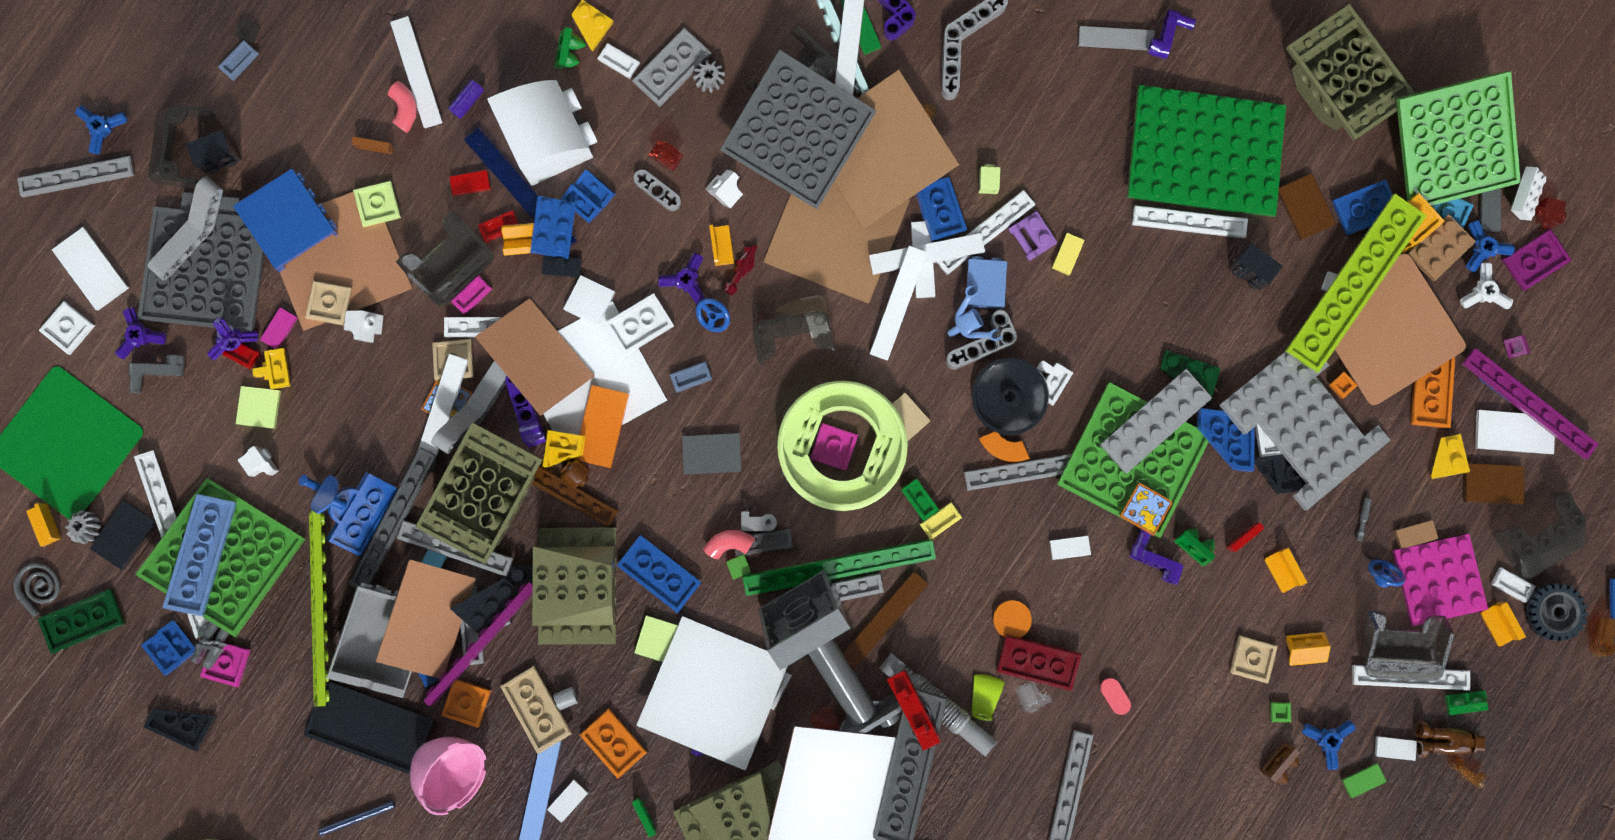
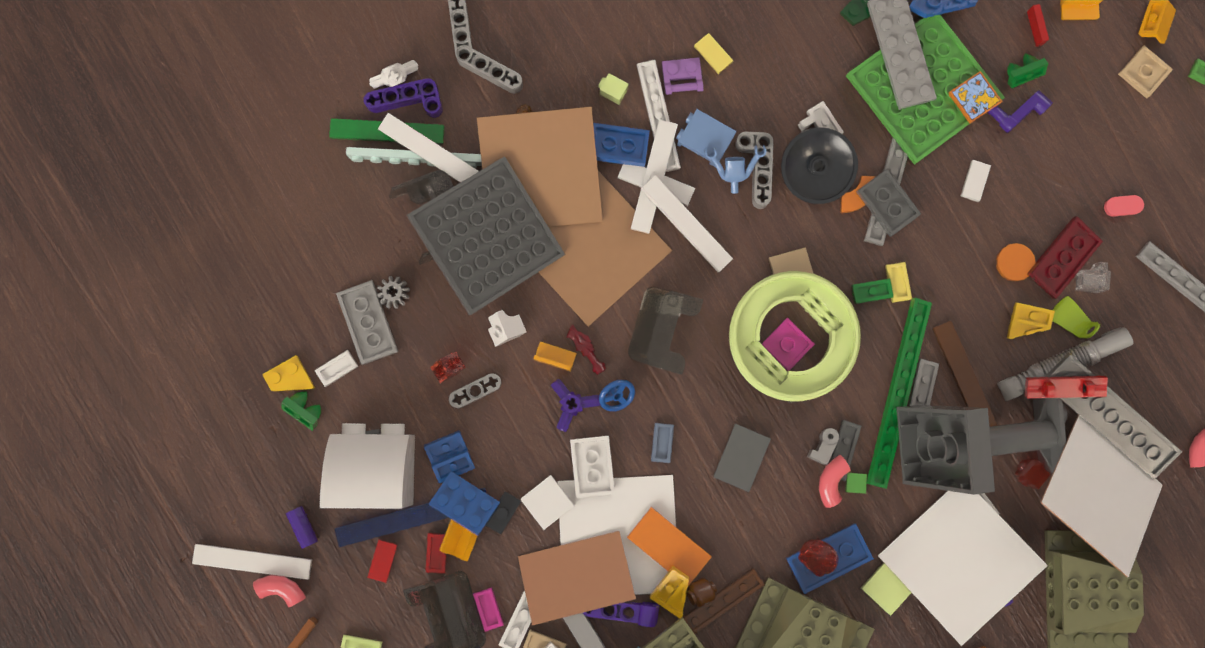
camera: 65 degrees left, 0 degrees up
(654, 560) = (818, 557): none -> clear red plate
(964, 656) = (1028, 320): none -> yellow wing
(1008, 476) = (888, 202): none -> dark grey tile

